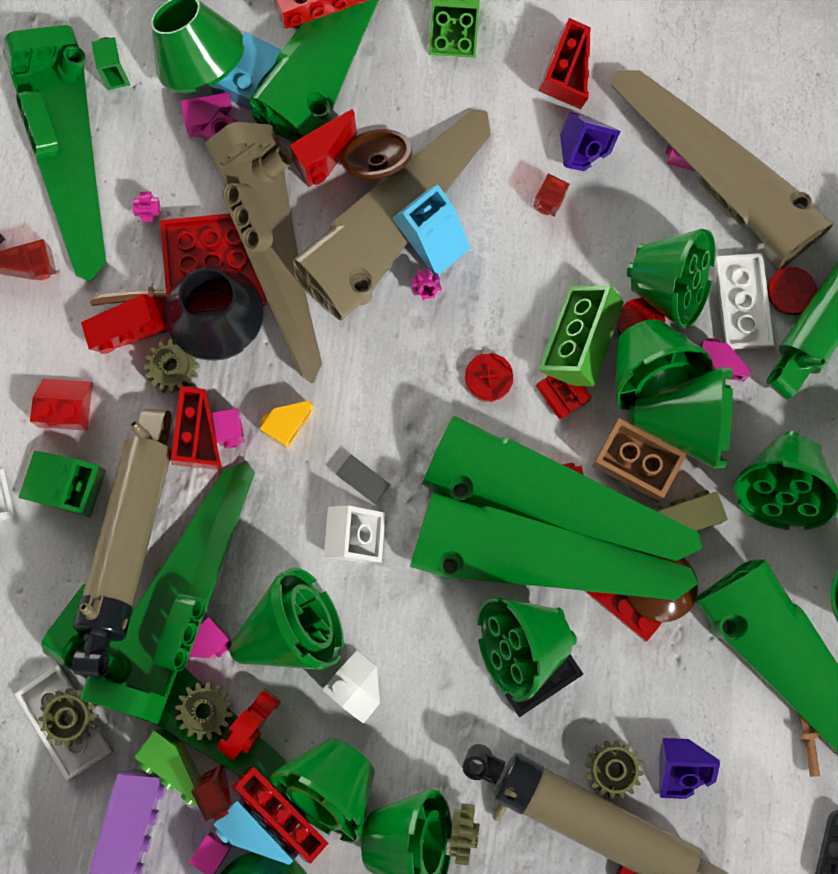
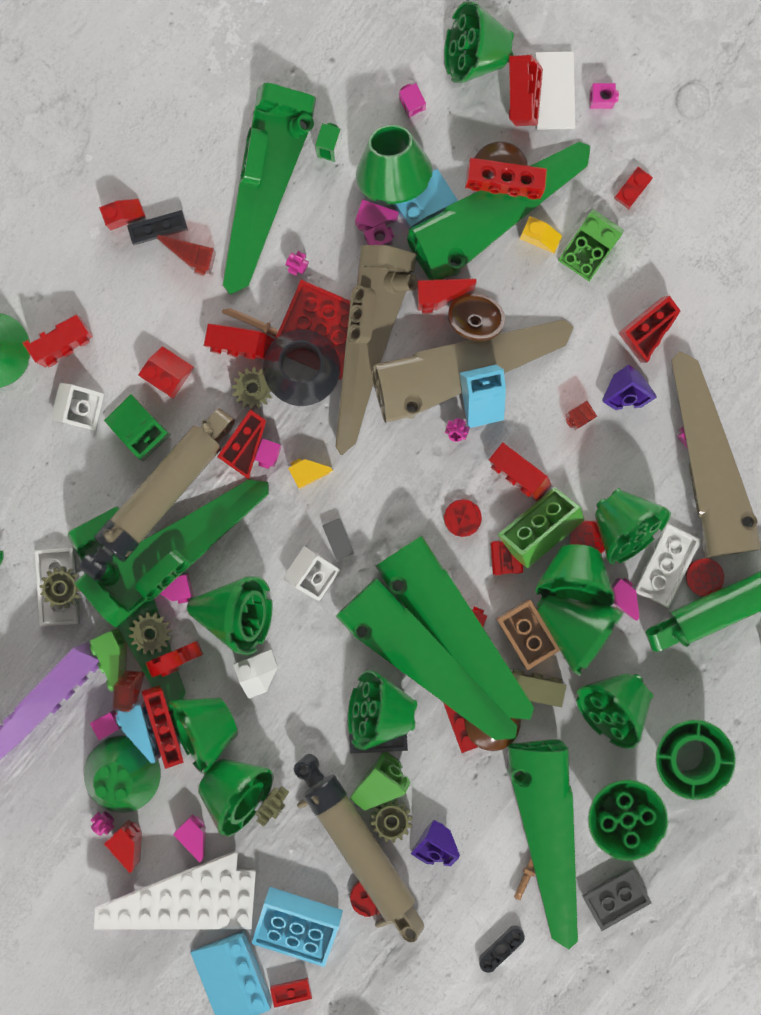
camera: 30 degrees right, 10 degrees up
(394, 36) = (541, 235): none -> yellow slope
(523, 289) = (520, 472): none -> red wedge
(575, 731) = (381, 783): none -> bright green slope

